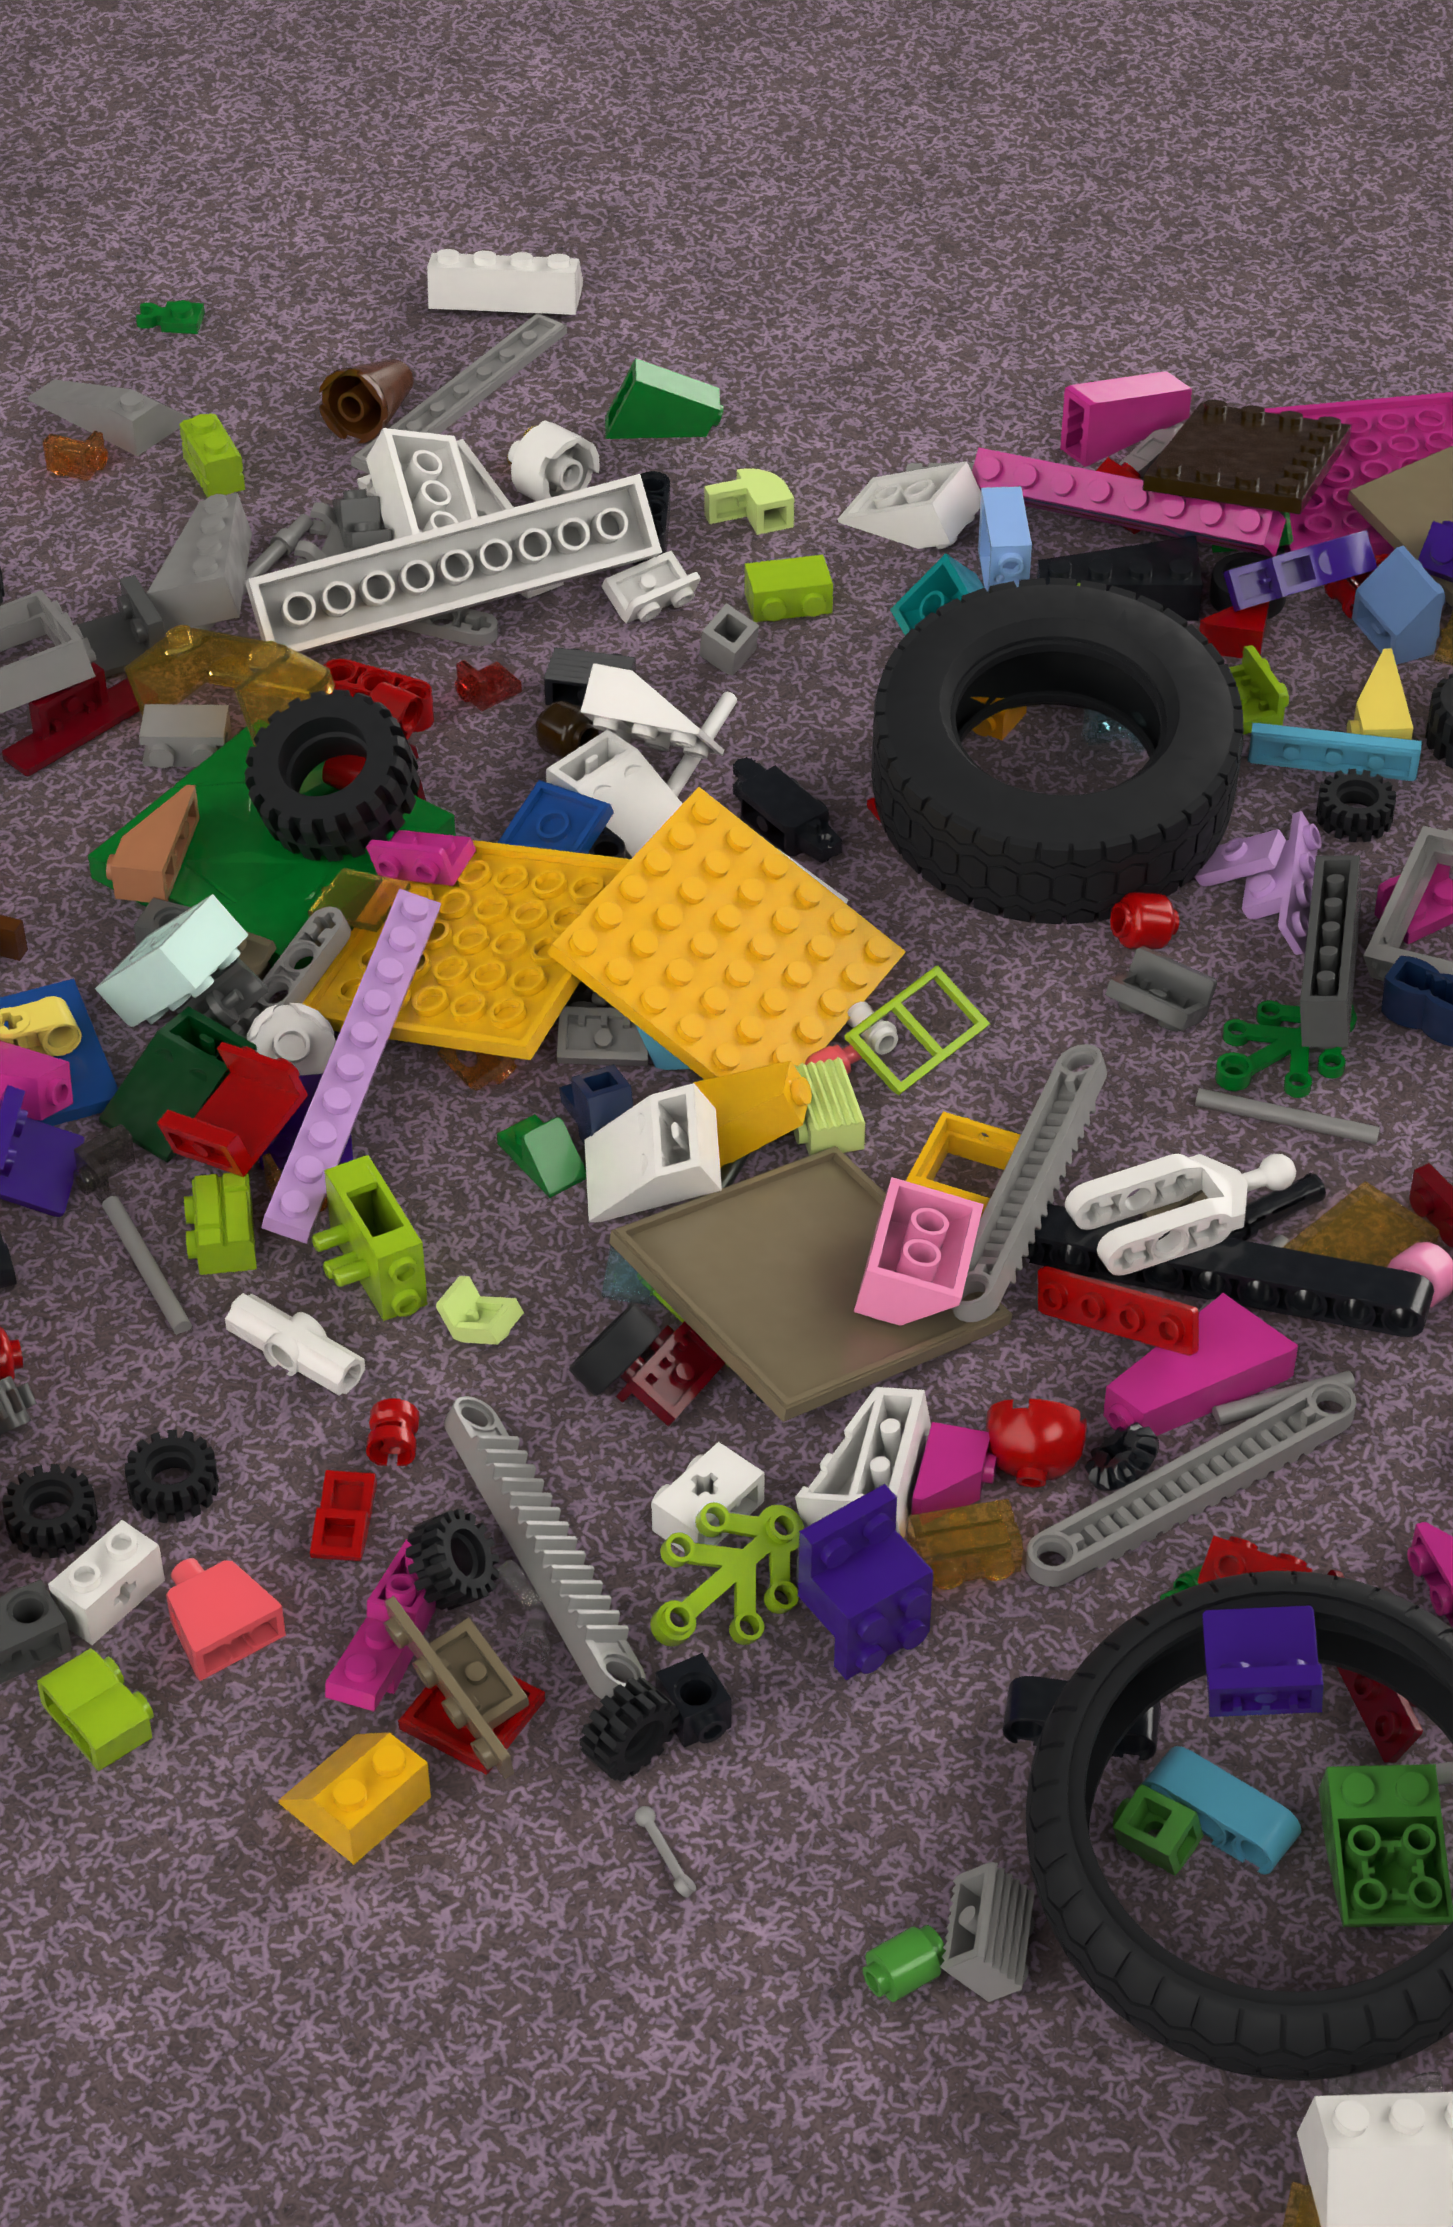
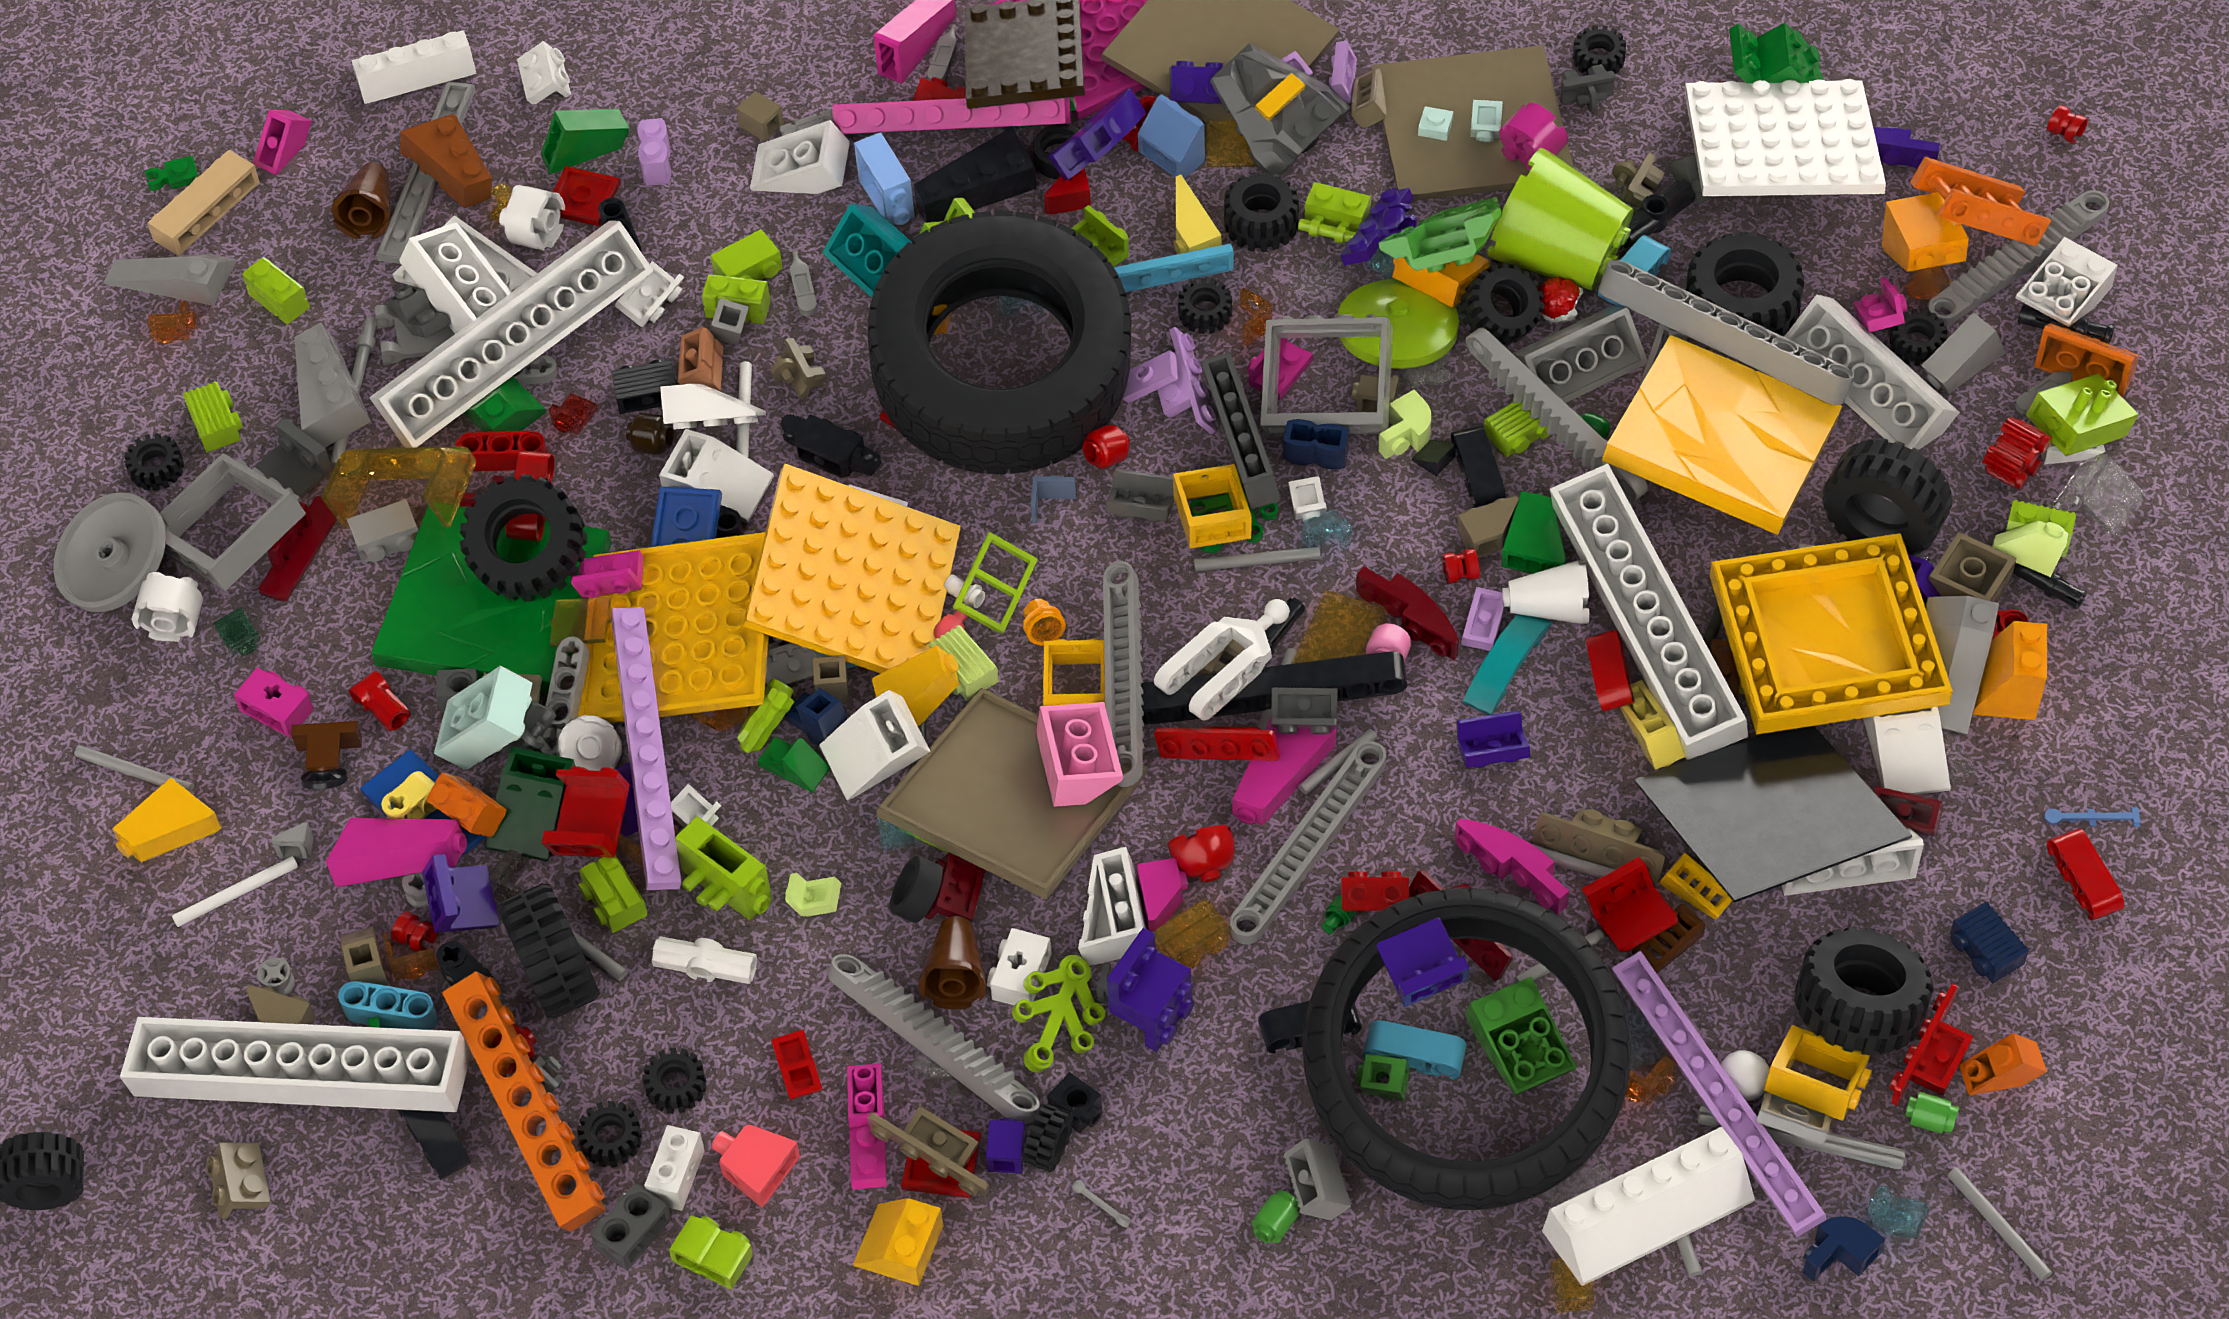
camera: 20 degrees left, 10 degrees up
(61, 559) = (212, 416): none -> lime brick
(69, 912) = (379, 700): none -> red piece
(86, 1248) = (548, 950): none -> black tyre
(95, 1054) = (466, 804): none -> orange brick
(155, 850) = (421, 637): nougat slope -> none
(186, 349) = (203, 202): none -> tan brick
(311, 313) = (280, 139): none -> dark pink slope
(386, 1157) = (691, 804): none -> white bracket
(392, 1431) = (799, 995): red wheel -> none
(409, 650) = (506, 409): none -> green slope
(452, 1559) = (887, 1070): black tyre -> none
(489, 379) = (449, 157): none -> dark orange wedge
(532, 1083) = (766, 717): none -> lime rock
(559, 1720) = (1005, 1146): none -> dark purple brick
(614, 1465) = (953, 968): none -> reddish brown cone
(631, 457) = (583, 193): none -> red tile
(642, 1063) = (832, 676): none -> dark tan brick
(654, 332) = (543, 73): none -> white bracket
(675, 667) = (700, 359): none -> nougat brick
(738, 442) = (654, 151): none -> lavender brick
(754, 495) = (687, 191): yellowish green brick -> none
(776, 619) = (737, 290): none -> lime brick
(791, 717) = (795, 369): none -> dark tan hips
(846, 638) = (803, 286): none -> light grey piece
(888, 445) = (759, 116): none -> dark tan brick
(956, 1091) = (1042, 622): none -> light orange piece
(1044, 945) = (1051, 488): none -> sand blue bracket
(1122, 1457) = (1265, 849): black gear -> none
(1245, 1050) = (1215, 527): none -> yellow window
(1259, 1304) = (1304, 710): none -> dark grey bracket
(1390, 1065) = (1307, 498): none -> white bracket
(1396, 1107) = (1325, 527): none -> clear light blue bracket
(1403, 843) = (1257, 323): none -> clear orange bracket

